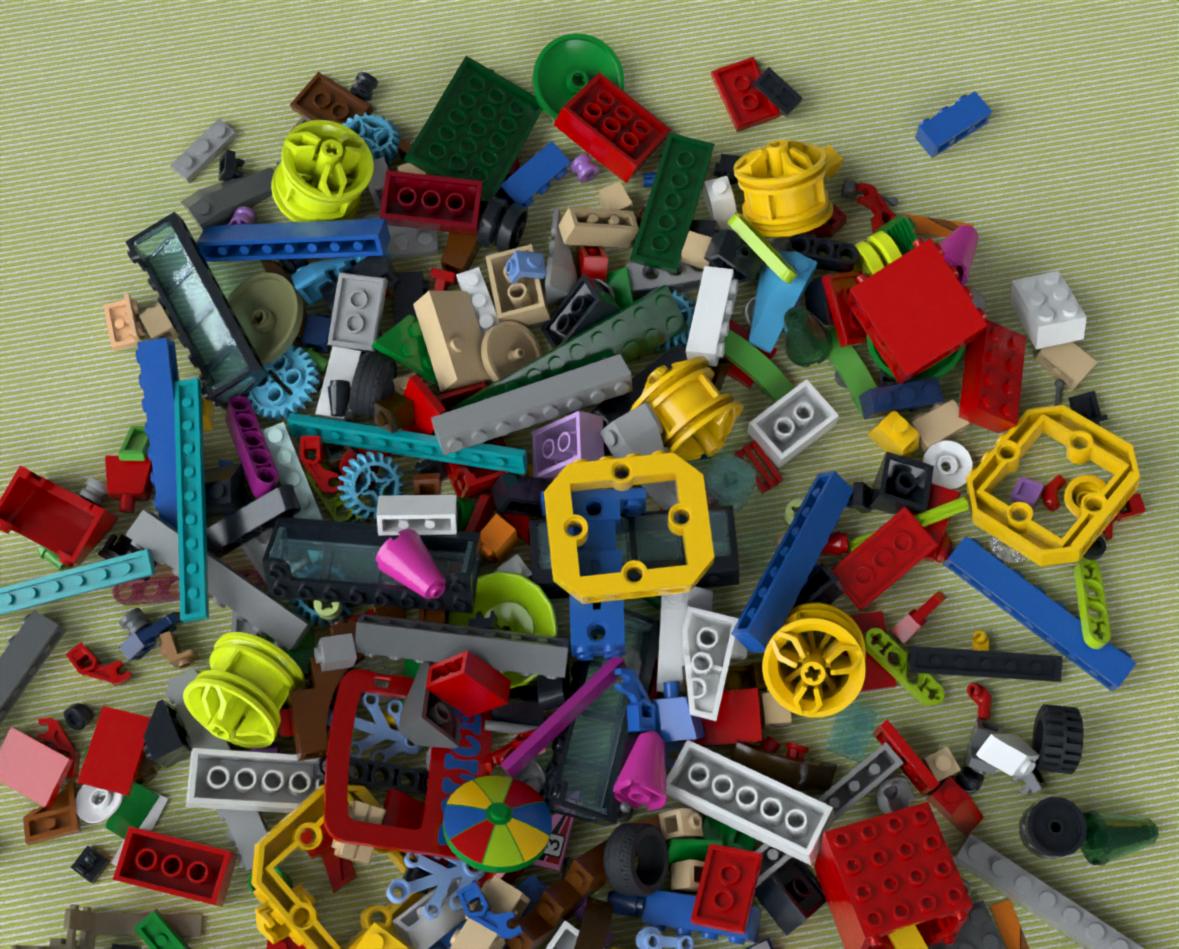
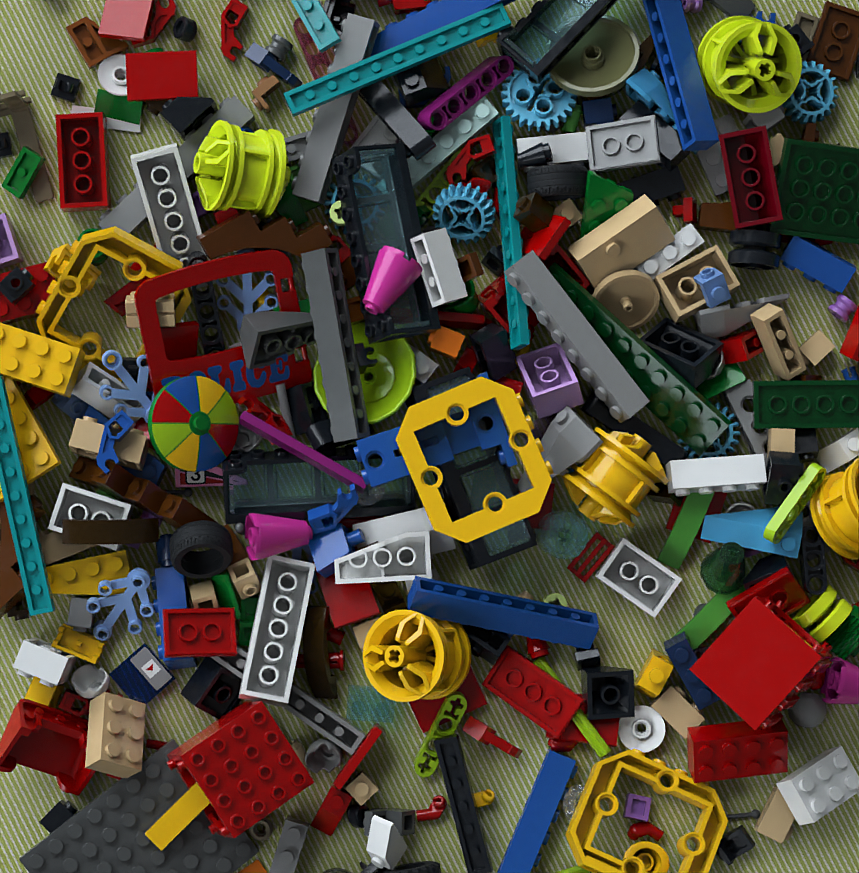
camera: 65 degrees right, 15 degrees up
(335, 652) = (295, 237): light grey brick -> none
(468, 684) = (304, 361): red brick -> none

